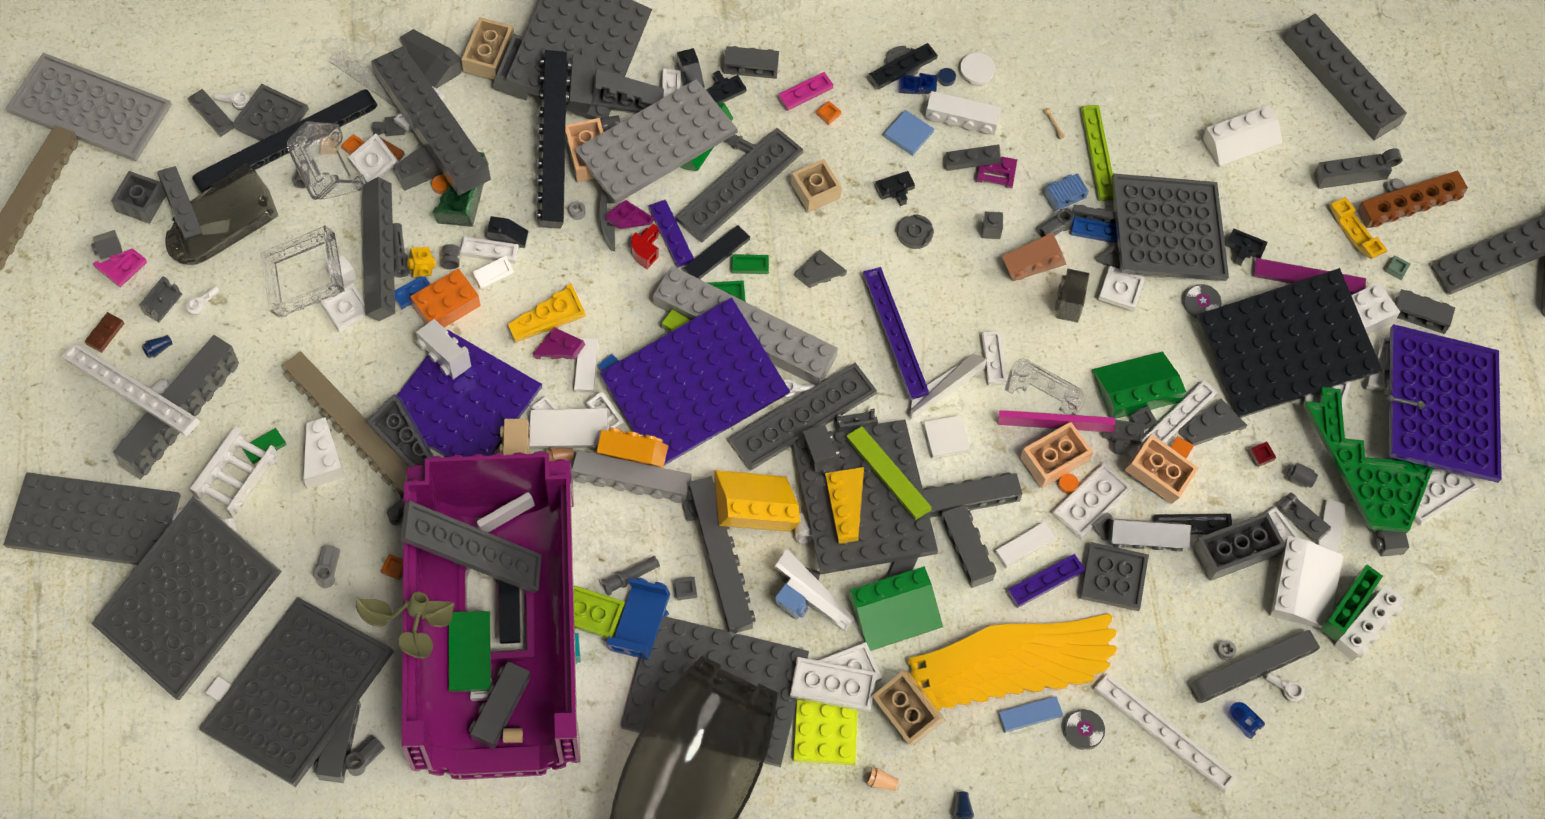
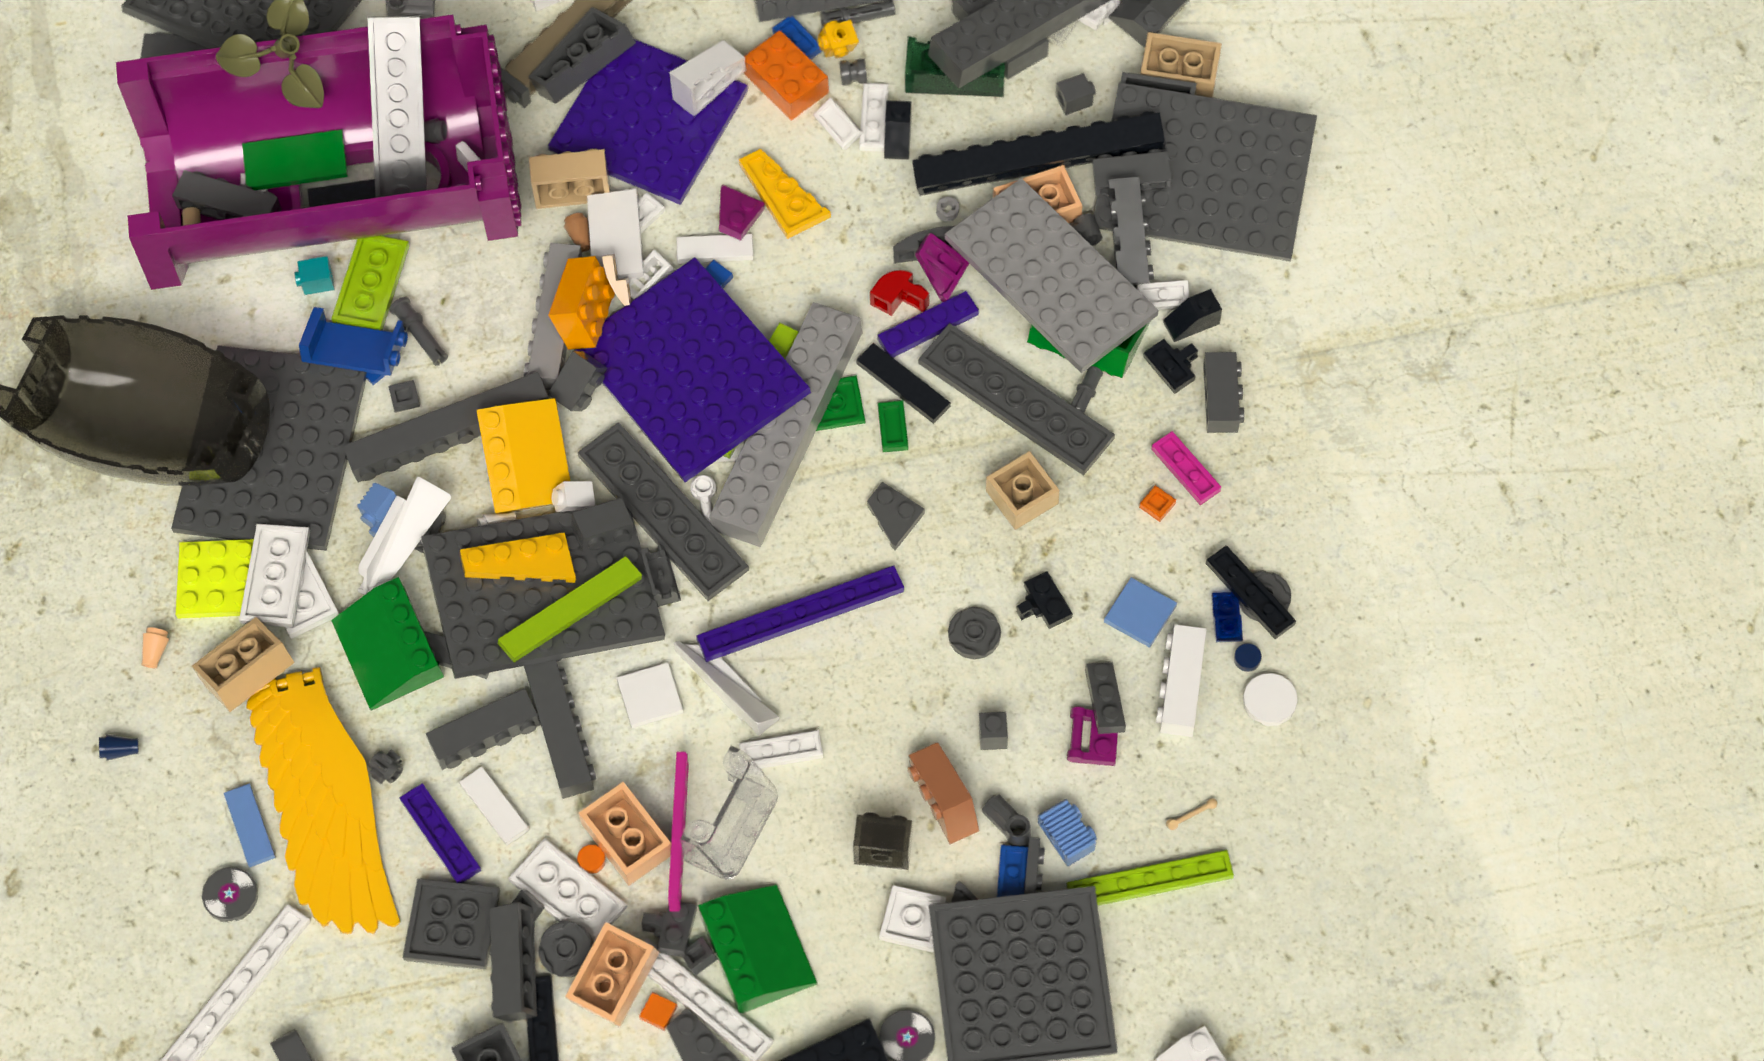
camera: 90 degrees right, 0 degrees up
(496, 118) = (1075, 94): none -> dark grey brick
(618, 422) = (619, 286): none -> slope
(695, 459) = (577, 381): none -> dark grey brick
(790, 470) = (573, 496): none -> white brick
(994, 613) = (386, 766): none -> dark grey gear
(1136, 502) = (564, 948): none -> dark grey tile

